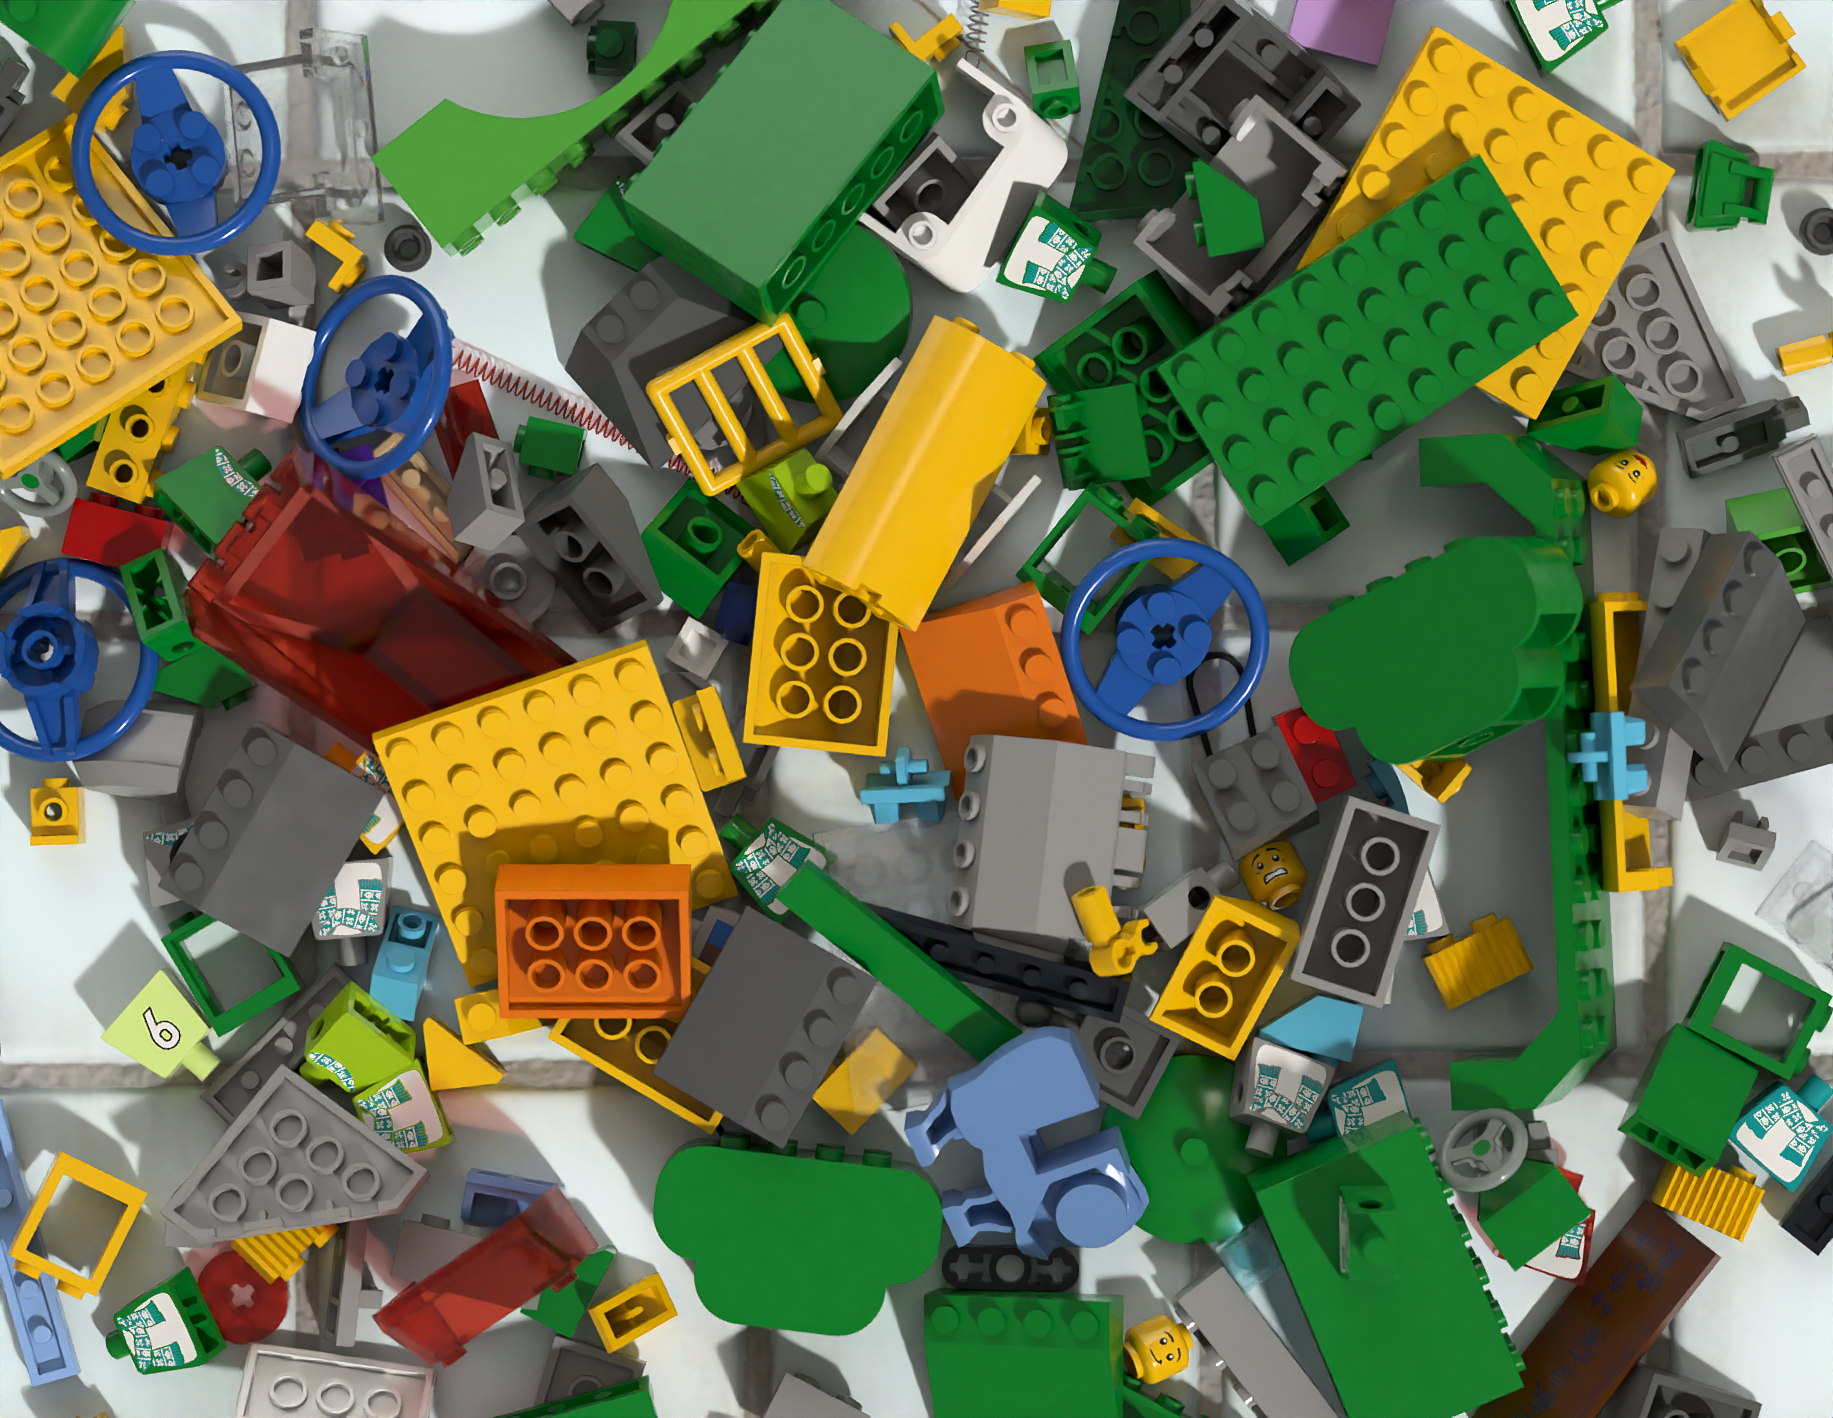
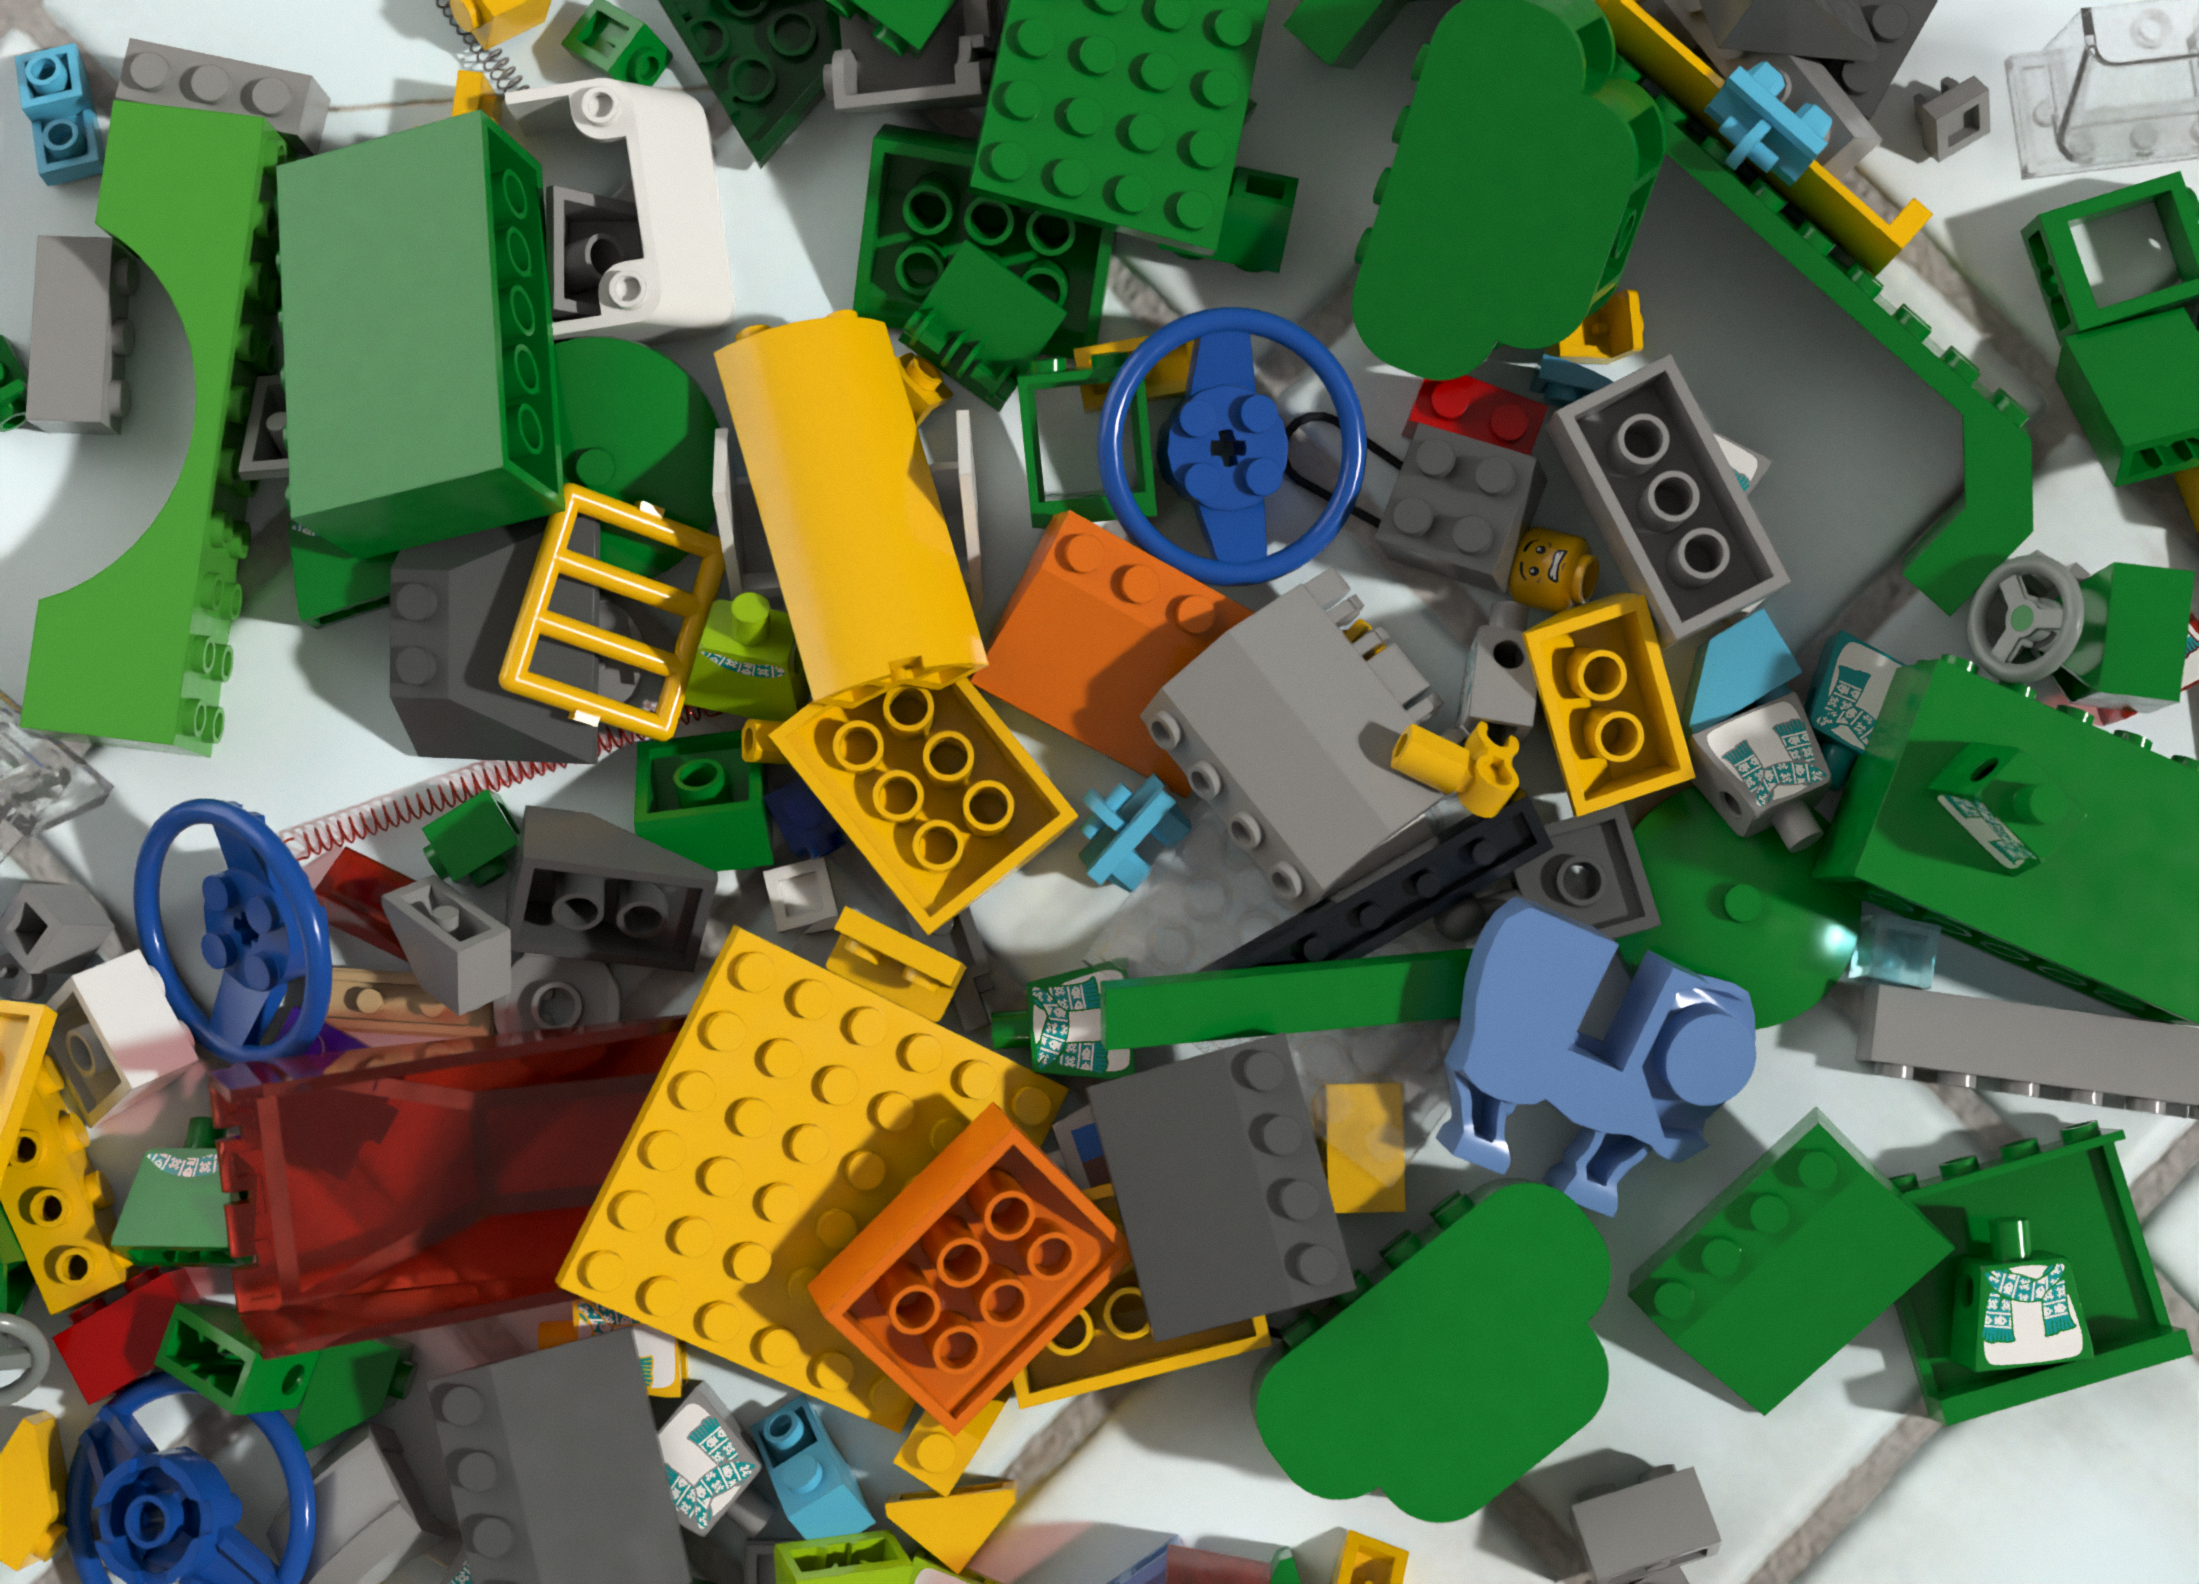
camera: 45 degrees left, 5 degrees down
(337, 241) = (81, 846): yellow bracket -> none
(397, 237) = (145, 774): dark grey plate -> none
(612, 48) = (165, 409): dark green brick -> none
(974, 1277) = (1653, 1232): black beam -> none
(1054, 254) = (774, 198): torso -> none
(1156, 1349) = (1895, 1126): yellow head -> none
(1476, 960) = (1818, 467): yellow brick -> none

